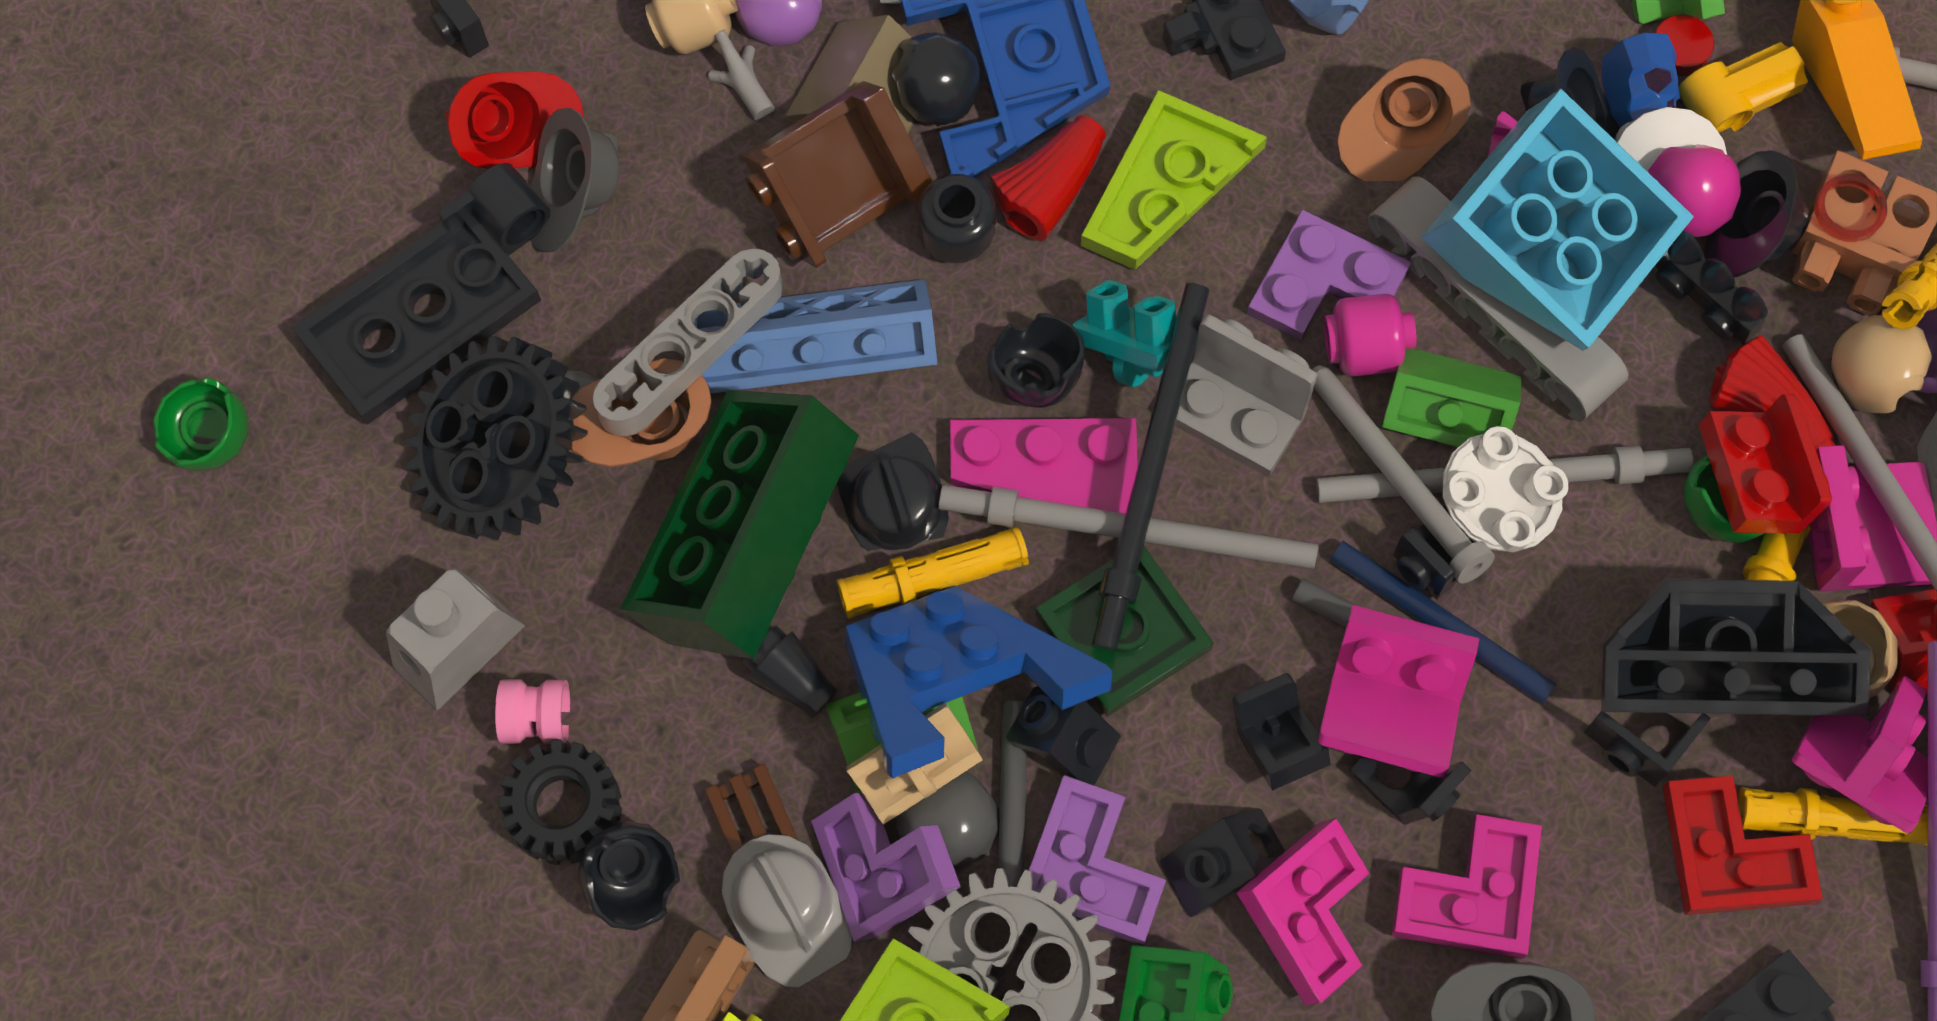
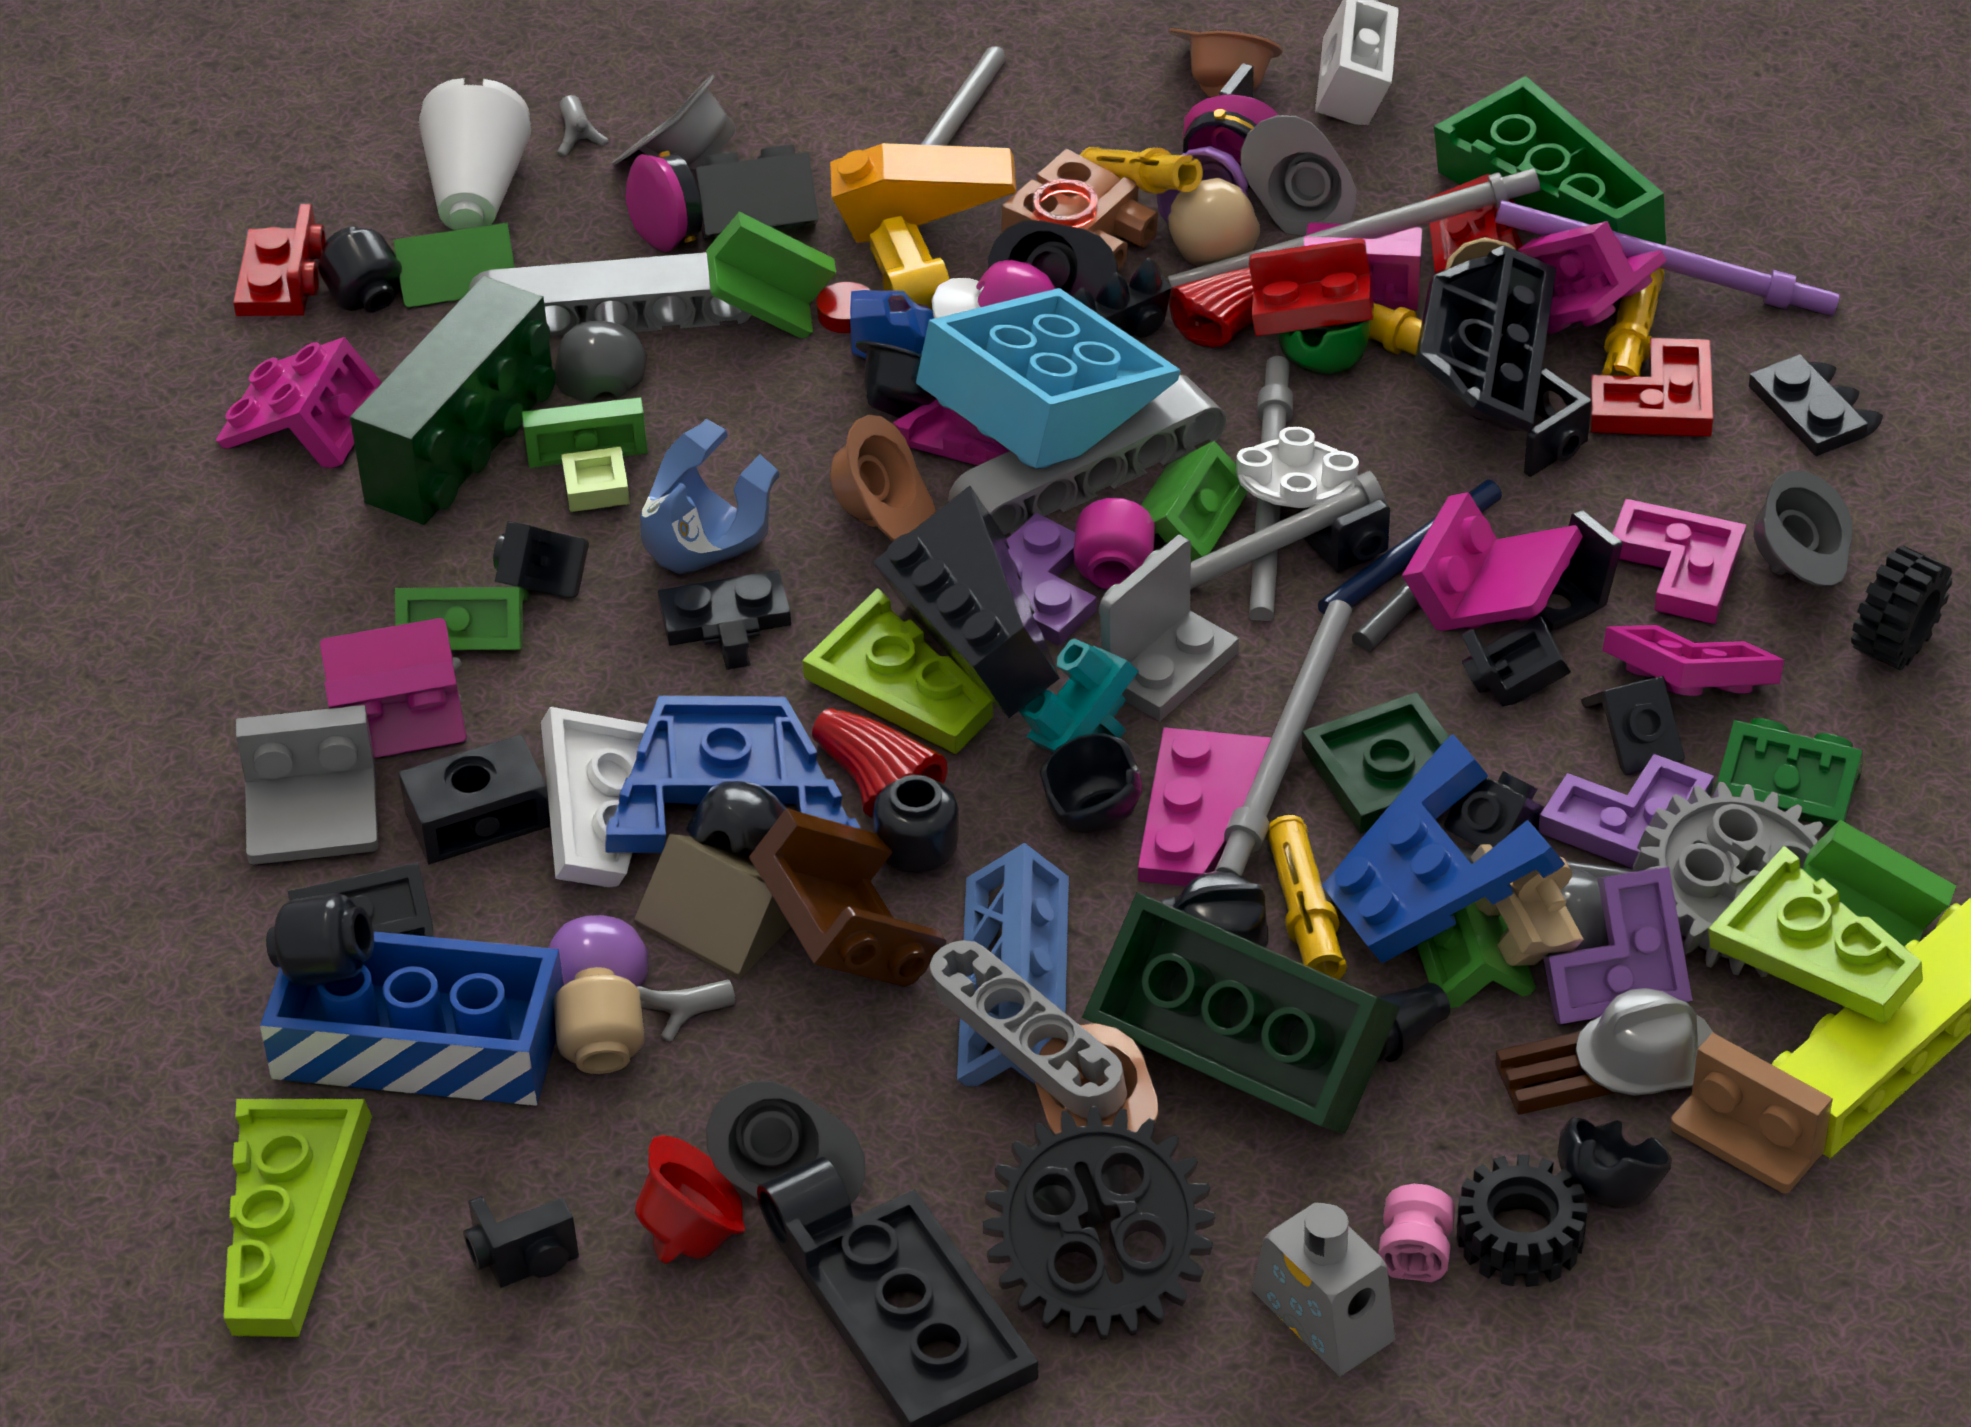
camera: 80 degrees left, 25 degrees down
(1120, 583) = (1352, 736): black bar -> none
(1221, 211) = (970, 600): none -> black wedge

